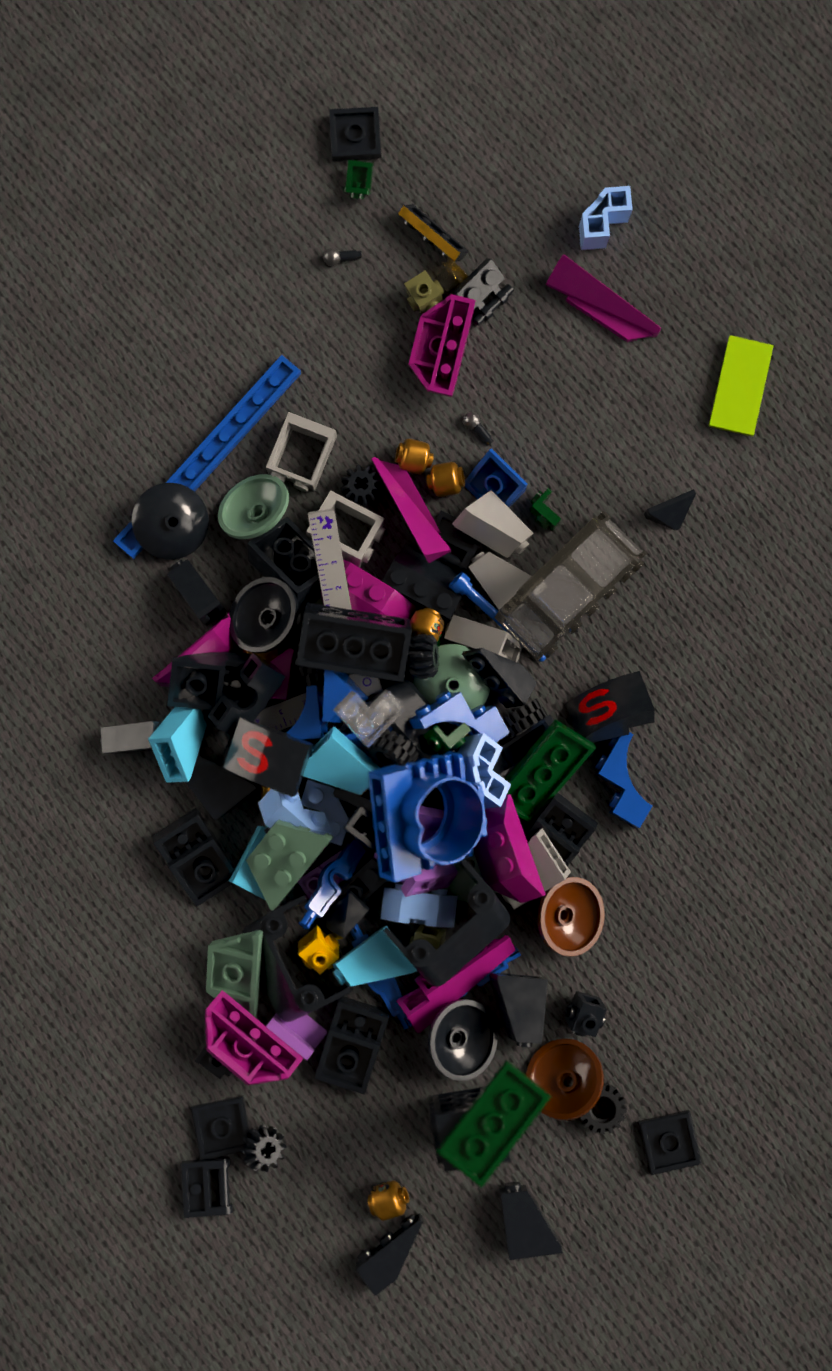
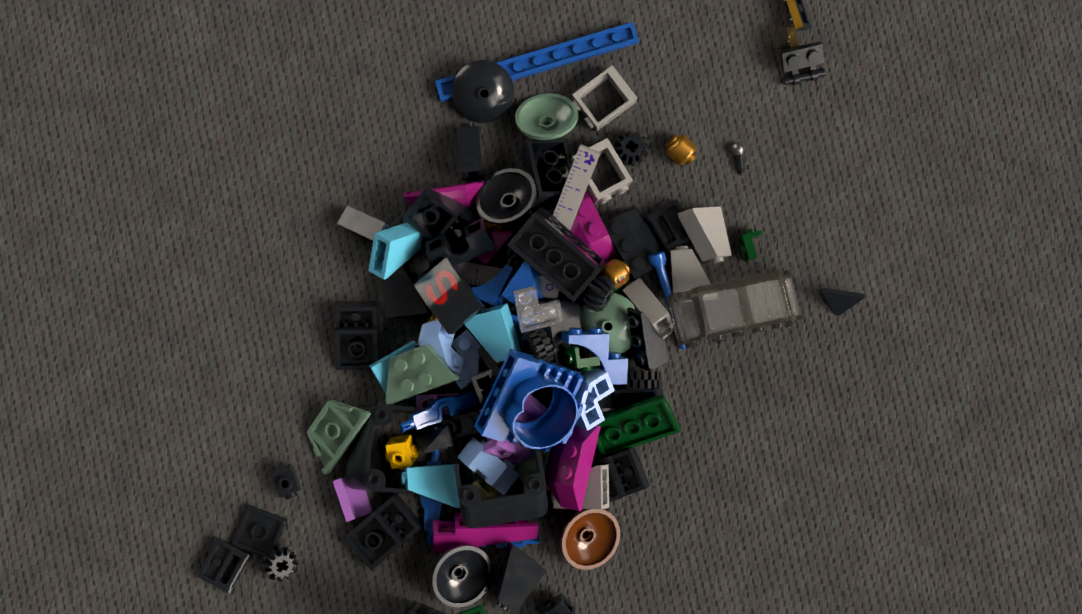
camera: 35 degrees right, 0 degrees up
(246, 1044) = (312, 484): magenta wedge -> none
(413, 509) = (656, 186): magenta wedge -> none
(423, 292) = (759, 40): olive brick -> none
(441, 344) = (749, 83): magenta wedge -> none
(446, 479) = (693, 179): pearl gold head -> none
(495, 475) = (730, 199): blue slope -> none
(600, 302) = (882, 121): magenta wedge -> none
(610, 207) = (931, 57): light blue brick -> none
(611, 708) = (709, 411): black slope -> none
(613, 768) = (684, 454): blue arch -> none
(741, 385) = (946, 241): lime piece -> none

